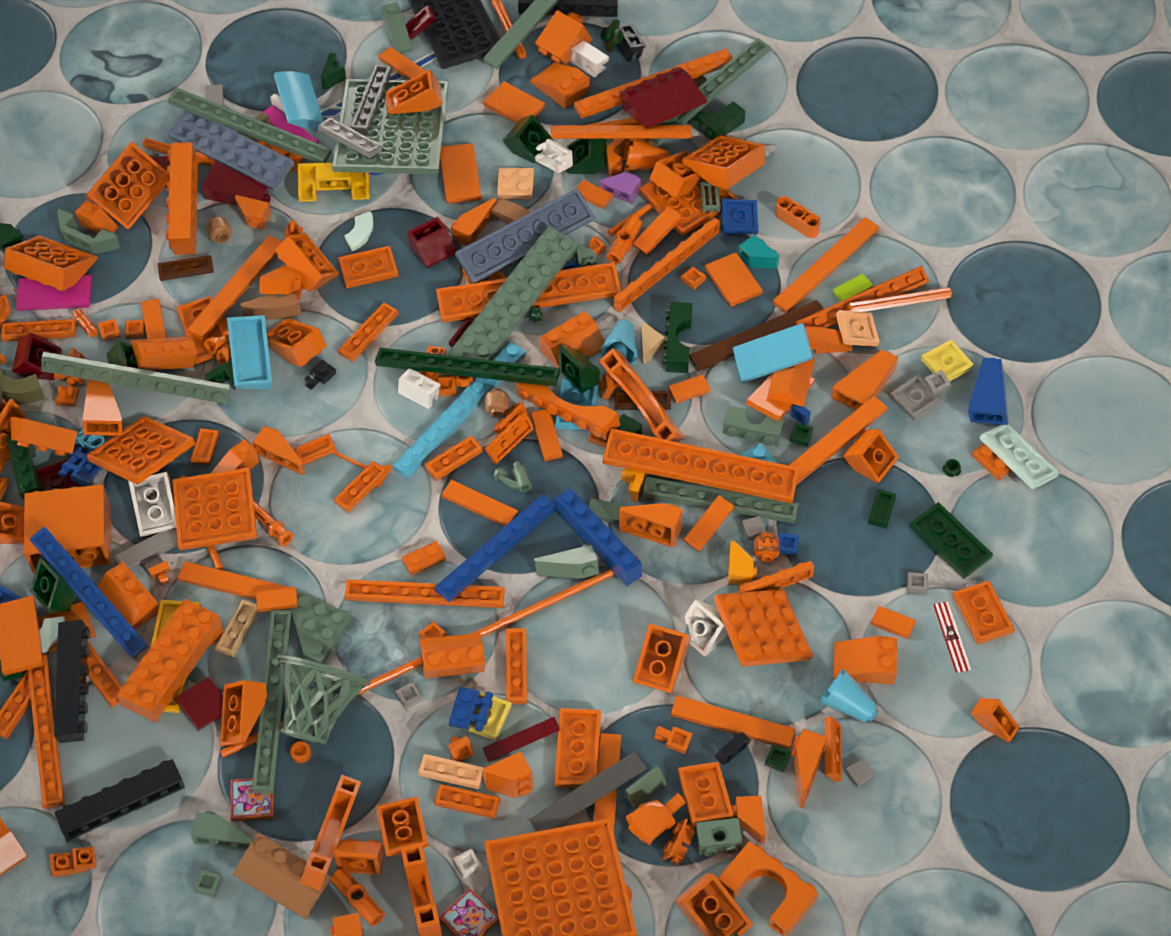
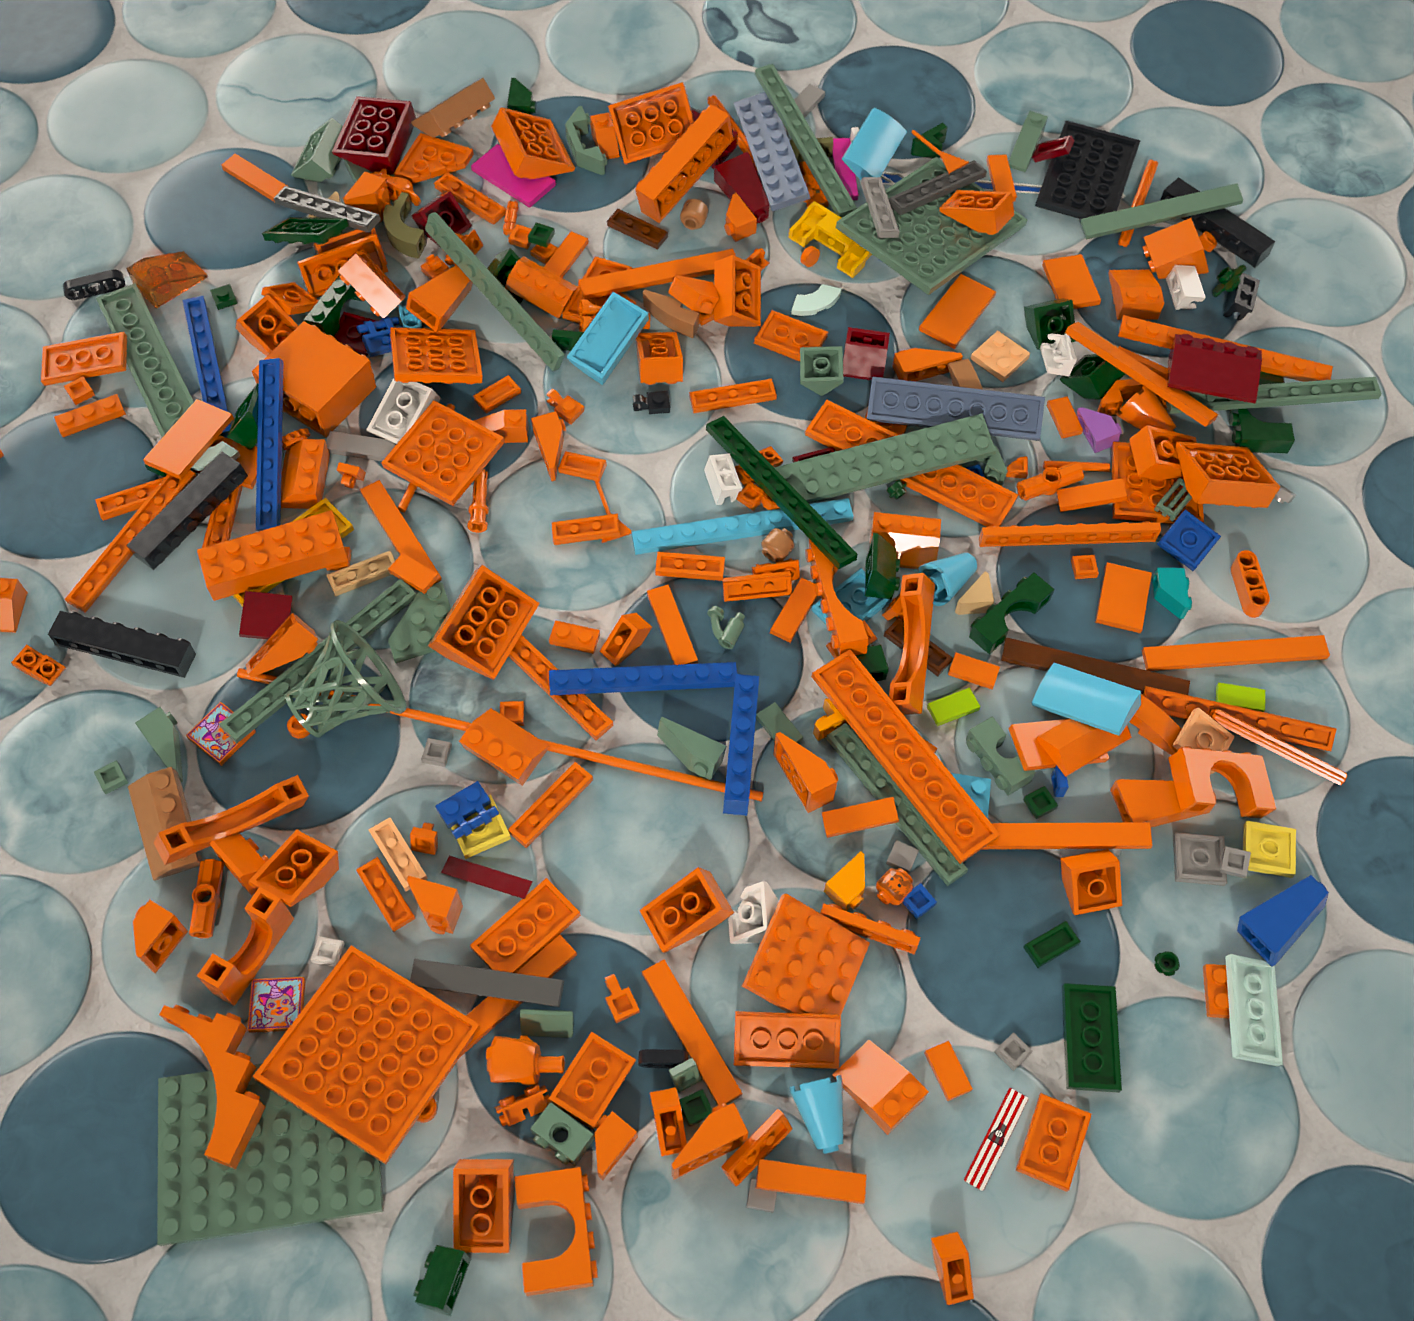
camera: 40 degrees right, 5 degrees up
(98, 574) = (294, 437): none -> orange gear
(125, 318) = (541, 235): none -> dark green plate
(263, 418) = (566, 408): none -> orange plate
(327, 204) = (810, 256): none -> orange tile
(360, 591) = (484, 623): none -> orange slope
(362, 75) = (951, 162): none -> orange piece
(413, 270) = (821, 368): none -> sand green slope
(459, 532) = (625, 638): none -> orange slope
(698, 419) = (953, 706): none -> lime tile
(754, 746) = (685, 1075): none -> sand green tile
(770, 777) = (668, 1121): none -> orange slope
(792, 678) = (787, 1040): none -> orange tile
(879, 741) = (811, 1181): none -> orange tile
(893, 328) = (1243, 770): none -> orange arch

